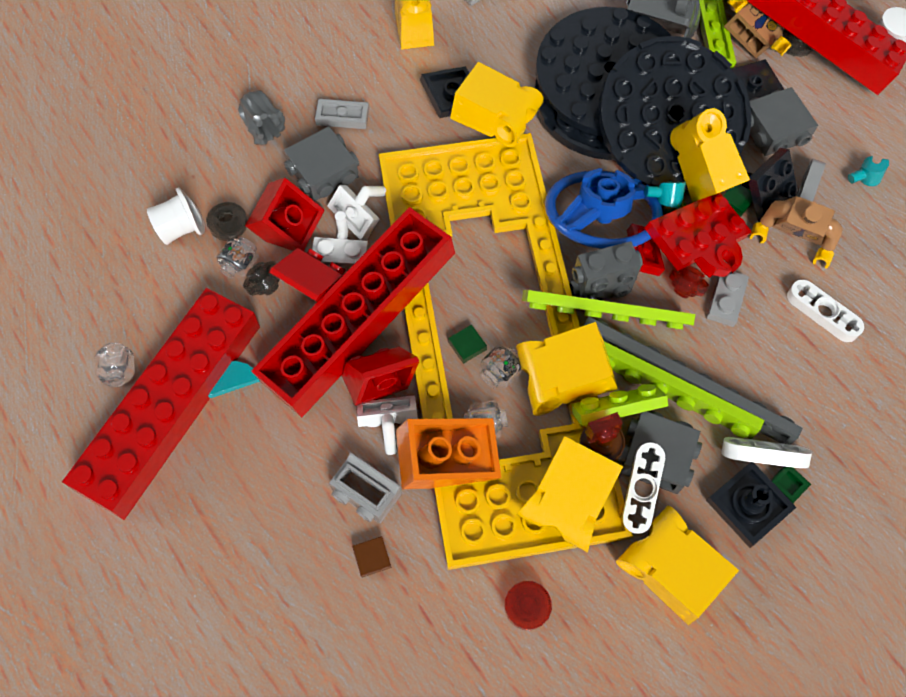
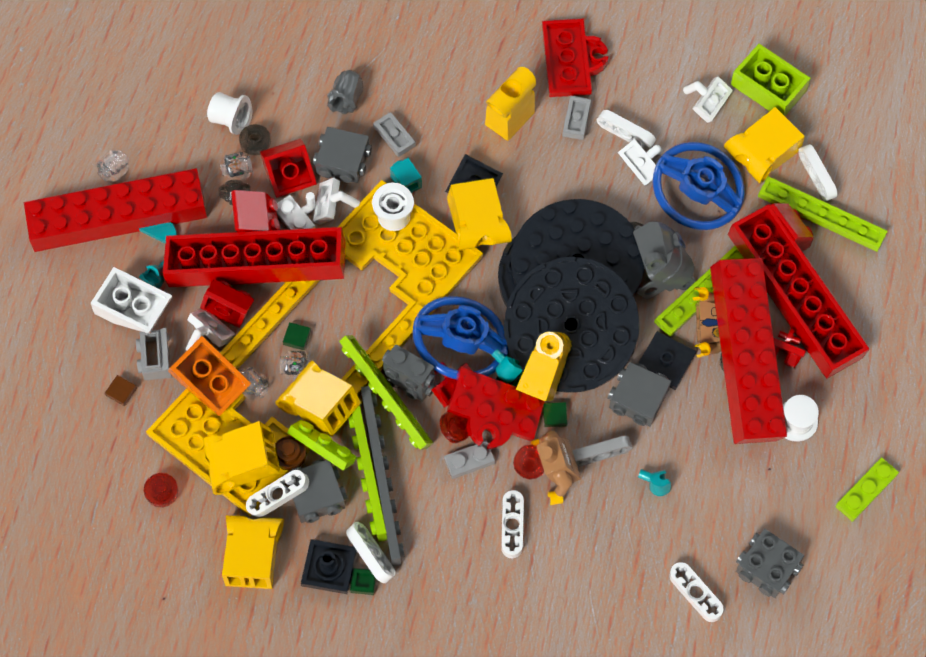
camera: 50 degrees right, 0 degrees up
(274, 419) = (154, 275): none -> teal piece
(288, 464) = (130, 301): none -> white slope
(393, 134) = (406, 174): none -> teal brick
(425, 154) = (393, 206): none -> white piece
(604, 429) = (287, 441): clear red plate -> none
(772, 182) = (577, 423): black plate -> none
(777, 248) = (528, 462): none -> clear red plate

